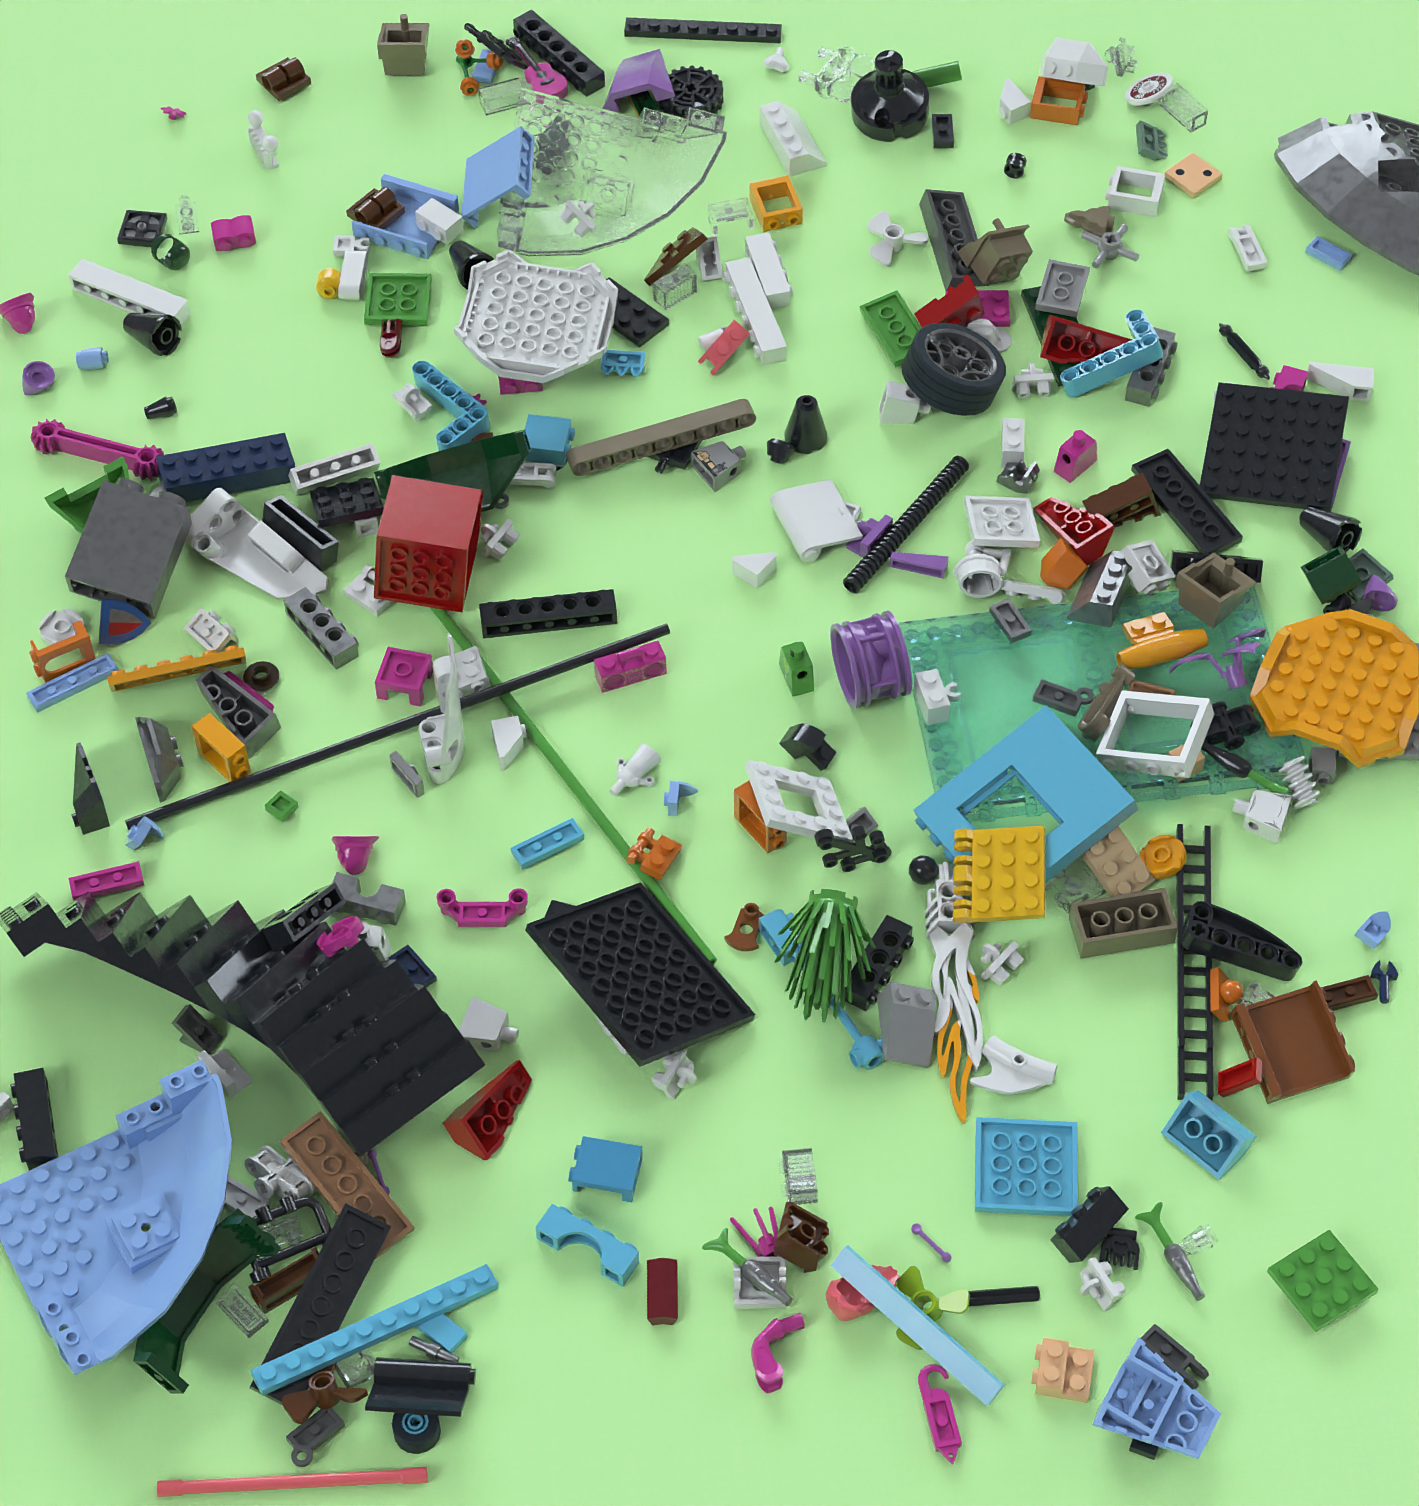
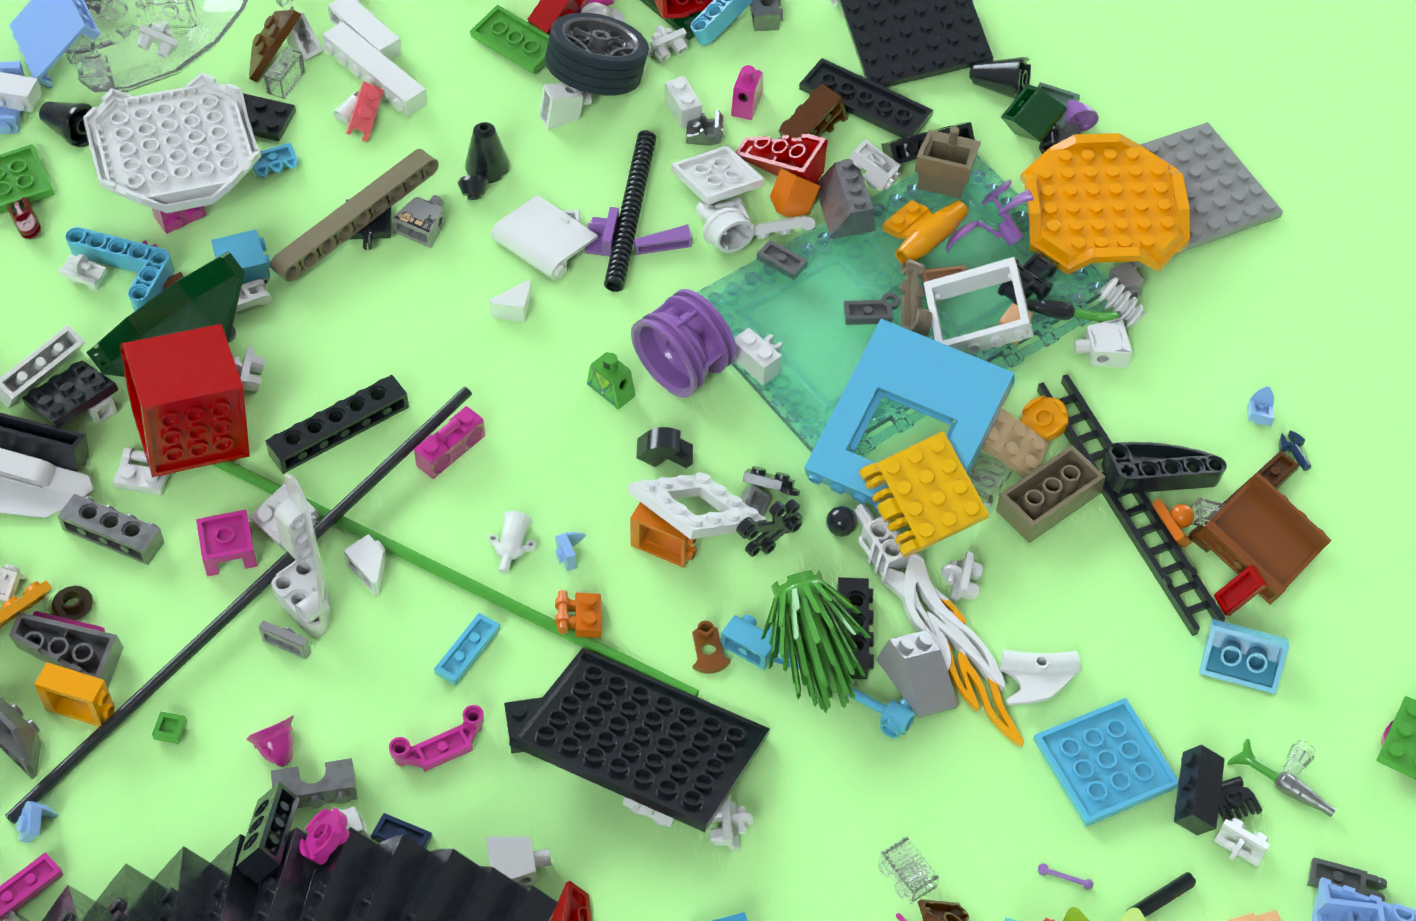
camera: 30 degrees left, 0 degrees up
(888, 813) = (779, 481): none -> hinge

